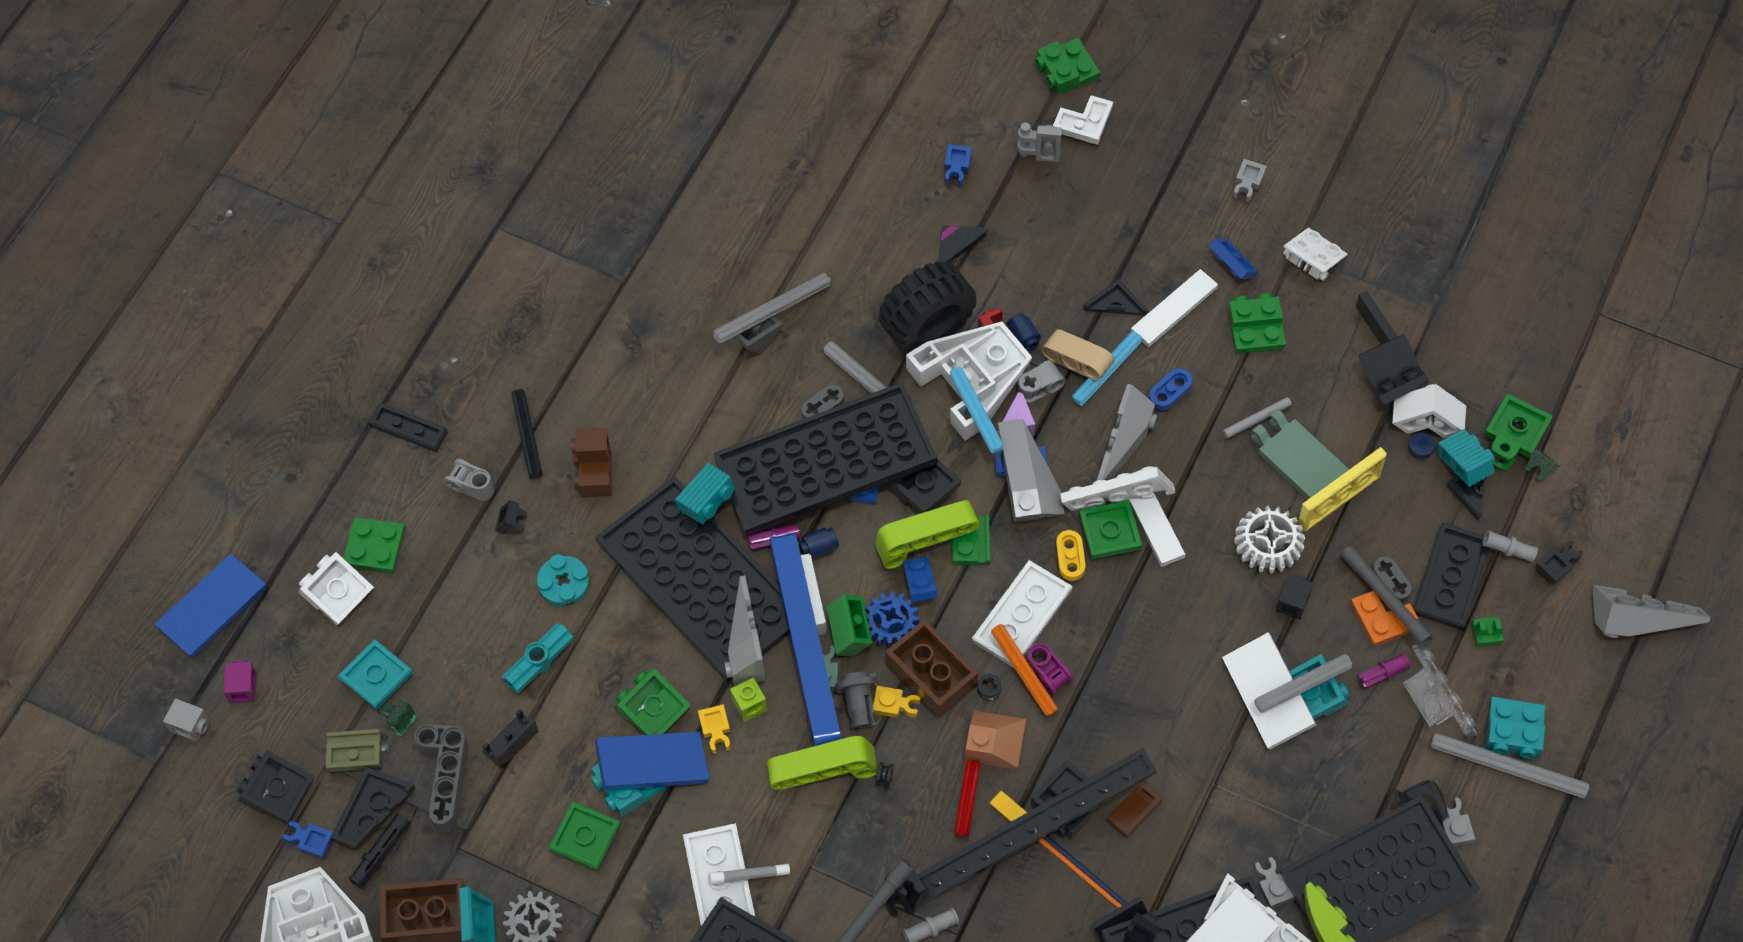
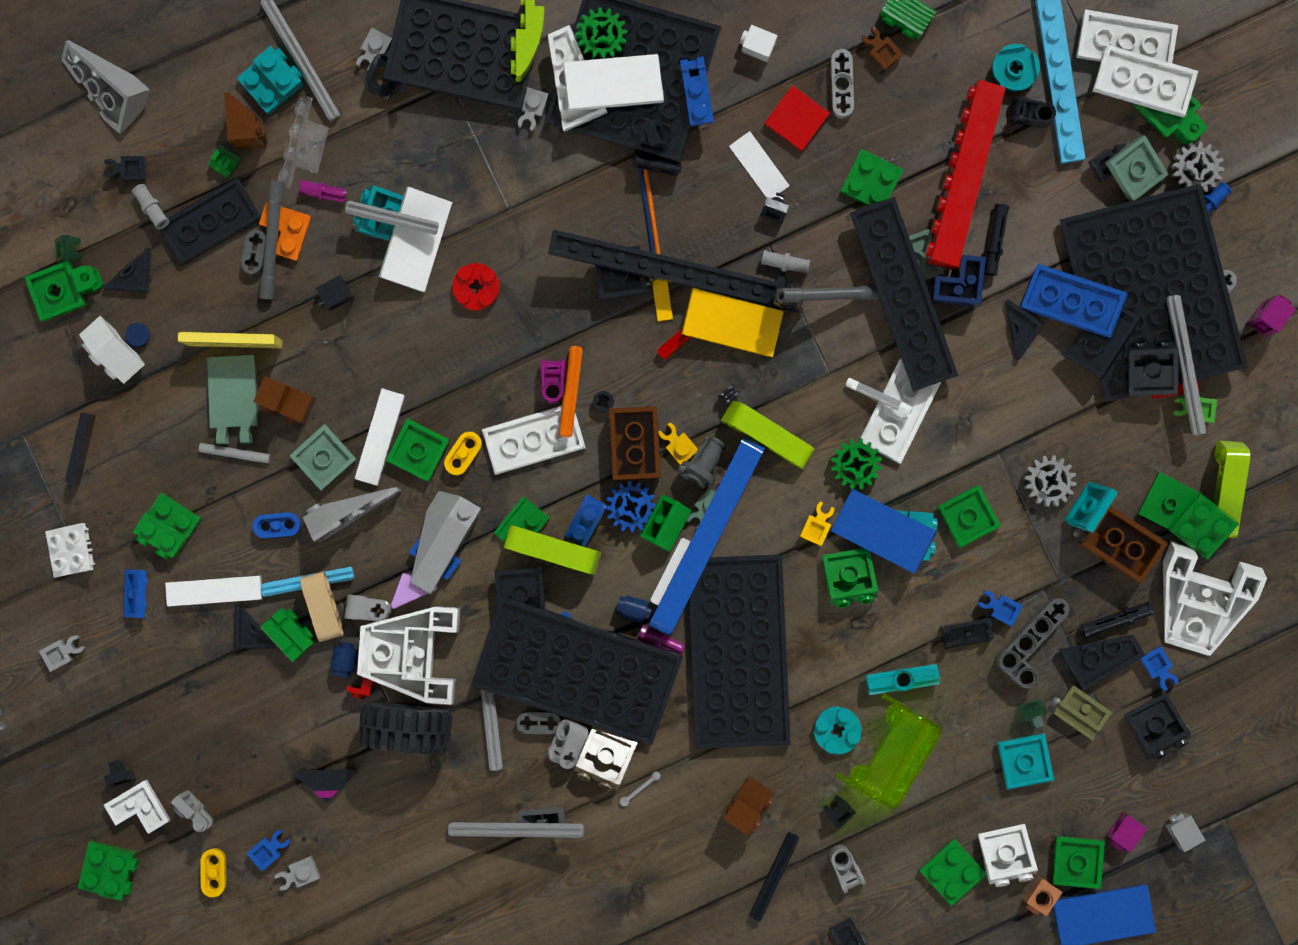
camera: 140 degrees left, 25 degrees up
(266, 629) = (1078, 862): none -> green plate
(280, 588) = (1052, 896): none -> nougat brick
(491, 589) = (897, 758): none -> clear neon green windscreen
(491, 781) = (1003, 609): none -> blue plate
(700, 401) = (624, 801): none -> light grey hinge
(705, 493) = (688, 709): teal brick -> none
(722, 802) = (859, 477): none -> green gear
(744, 414) = (605, 758): none -> plate
(744, 645) = (757, 560): light grey wedge -> none
(748, 699) = (780, 525): lime brick -> none
(784, 402) = (568, 741): none -> light grey piece
(917, 168) = (301, 873): none -> light grey plate
(935, 832) = (732, 322): none -> yellow tile
(976, 410) = (439, 613): medium azure axle -> none
(988, 119) = (213, 872): none -> yellow plate
(995, 739) = (631, 360): nougat slope -> none
(1085, 317) = (289, 634): none -> green brick
(1118, 489) = (383, 468): white wing -> none
(1122, 130) = (118, 774): none -> black tile
(1134, 809) = (590, 228): reddish brown tile -> none
(1184, 464) = (323, 457): none -> sand green plate
(1186, 682) = (485, 296): none -> red plate
(1257, 482) = (279, 398): none -> reddish brown brick
(1288, 535) = (305, 357): white gear -> none
(1393, 369) = (106, 400): black bracket -> none
(1466, 457) = (117, 294): teal brick -> none
(1501, 666) = (243, 126): none -> reddish brown slope

